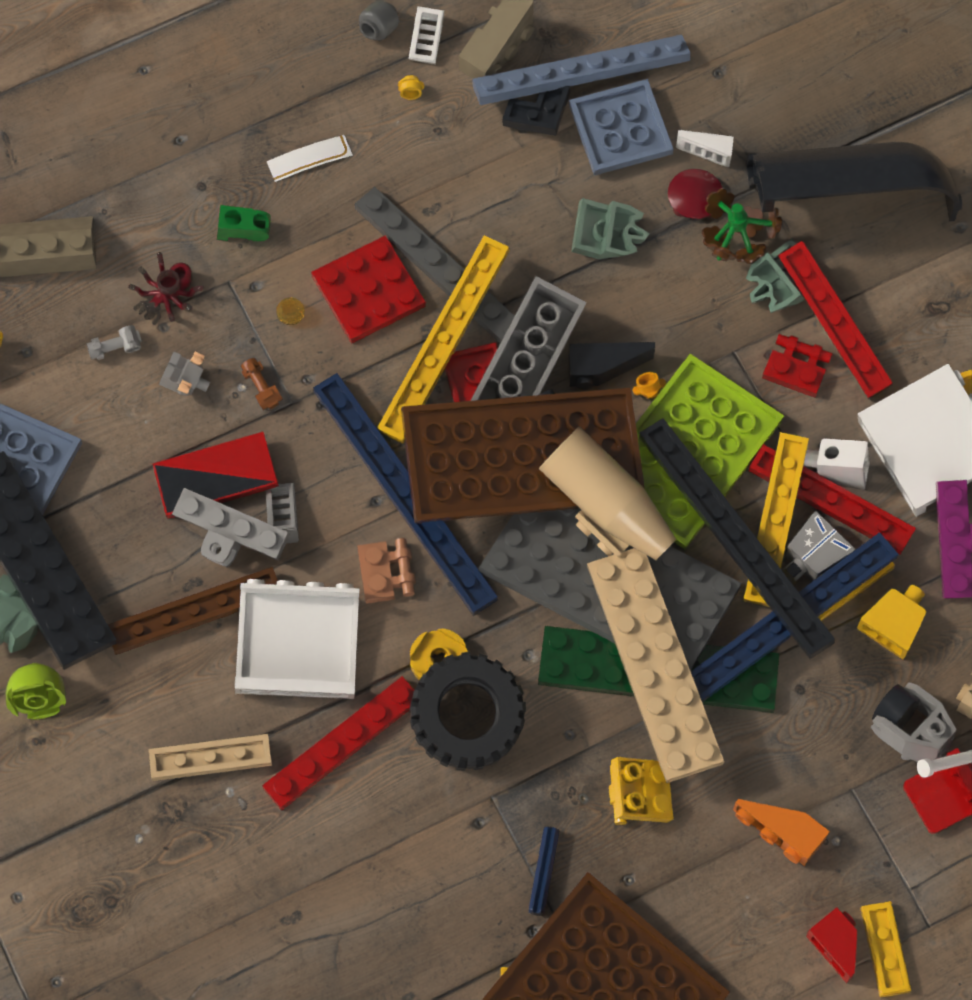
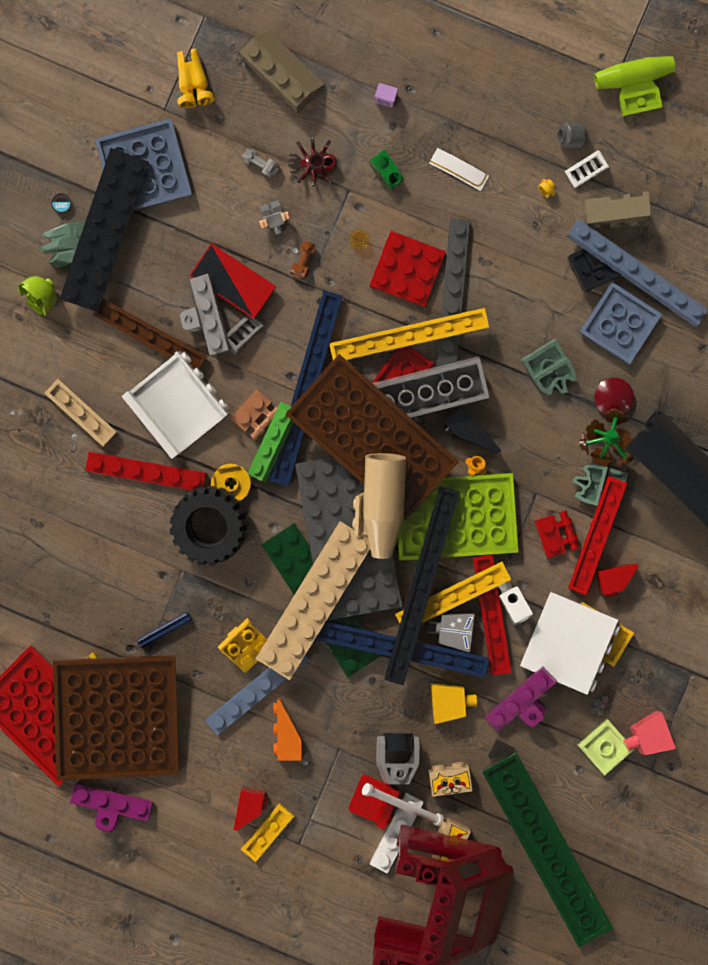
camera: 50 degrees right, 20 degrees up
(164, 163) = (386, 95): none -> lavender slope
(433, 574) = (271, 444): none -> bright green plate
(704, 842) = (246, 699): none -> sand blue plate
(707, 146) = (649, 383): white slope -> none
(899, 342) = (615, 579): none -> red slope

